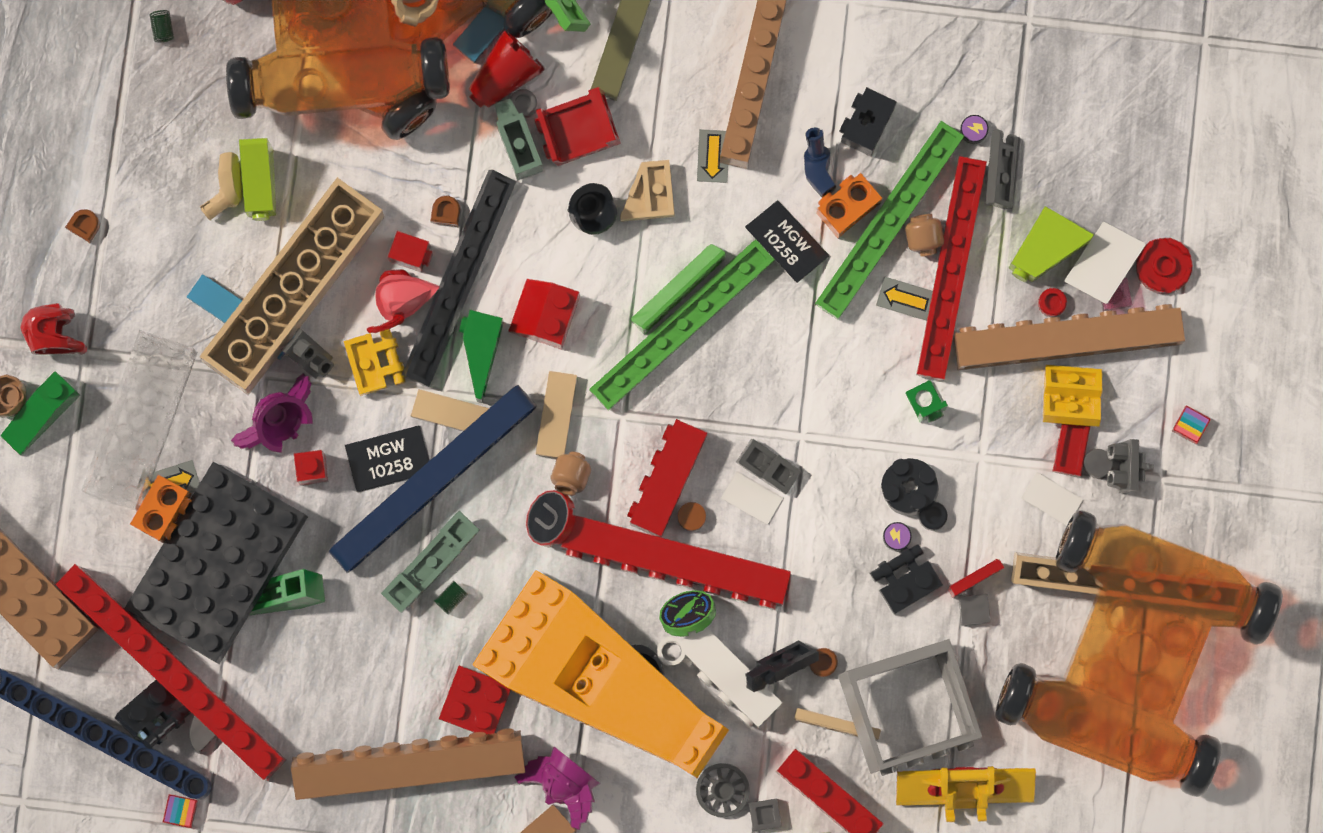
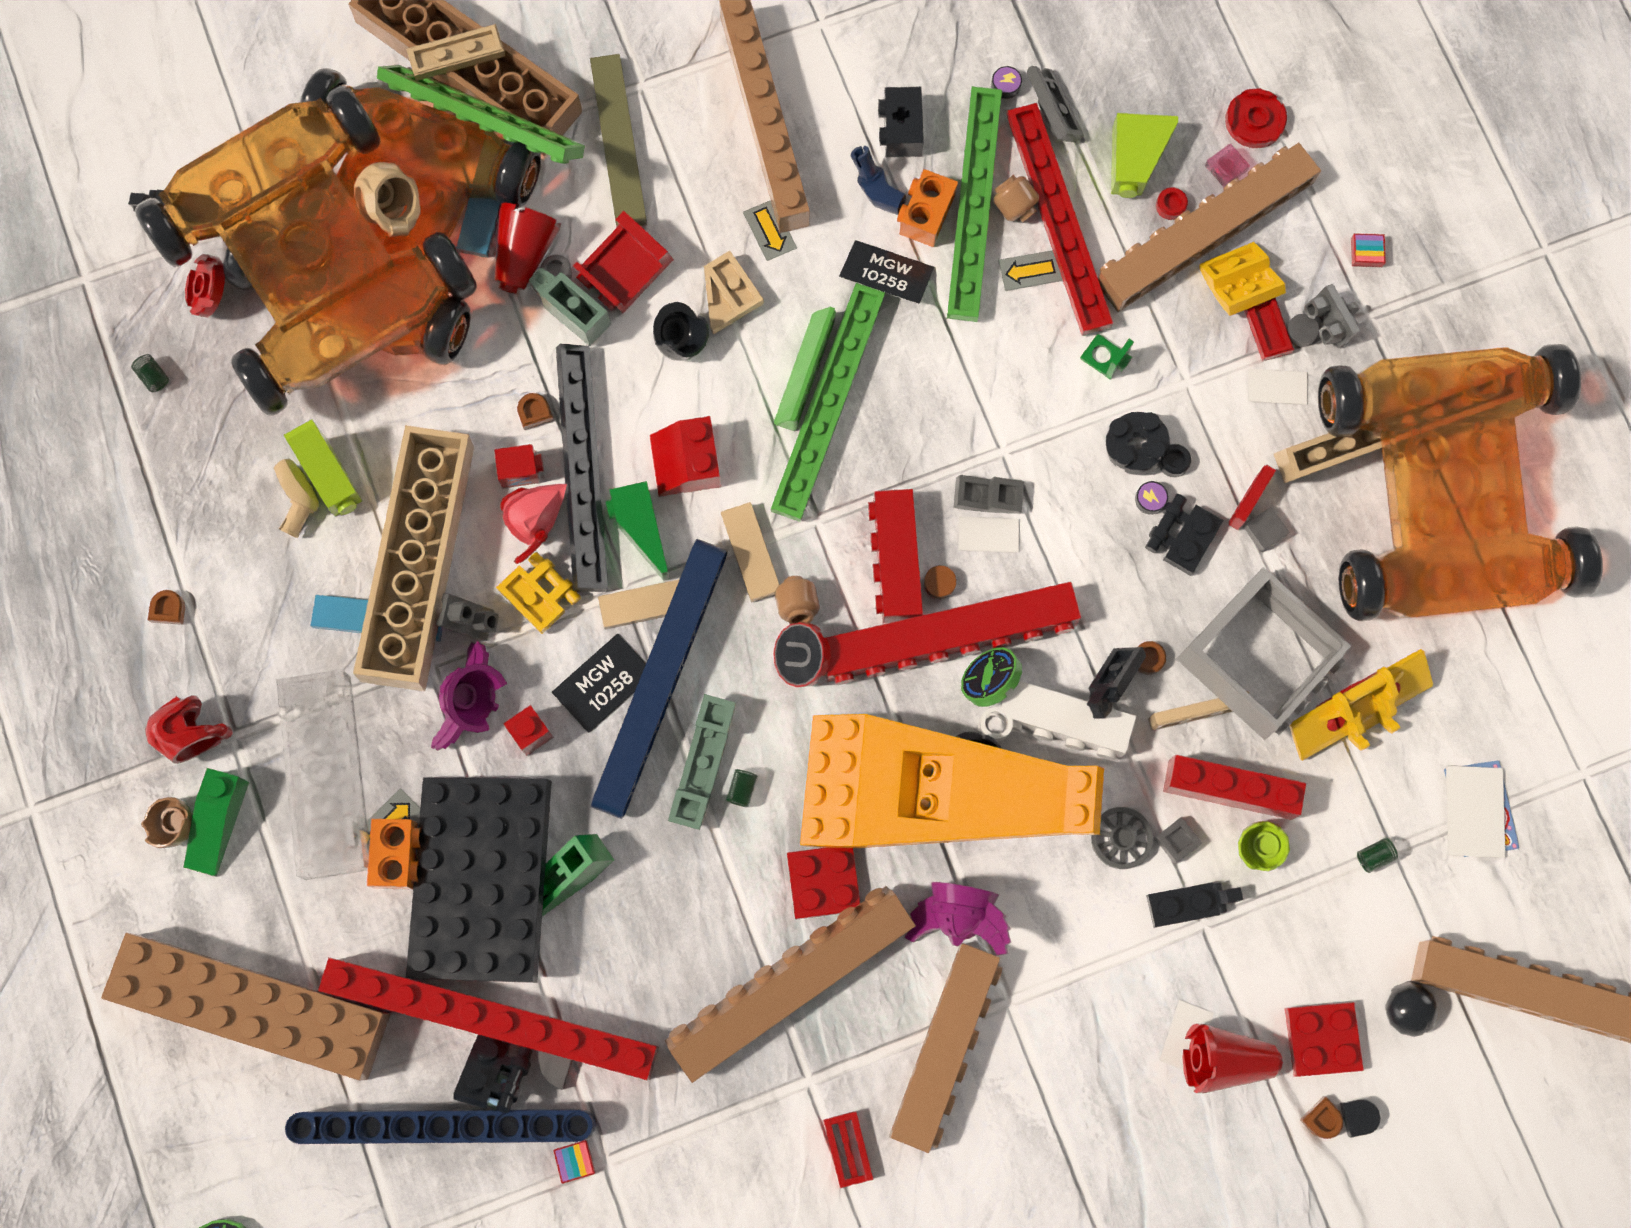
camera: 30 degrees left, 5 degrees down
(1105, 262) = (1201, 141): white sticker -> none

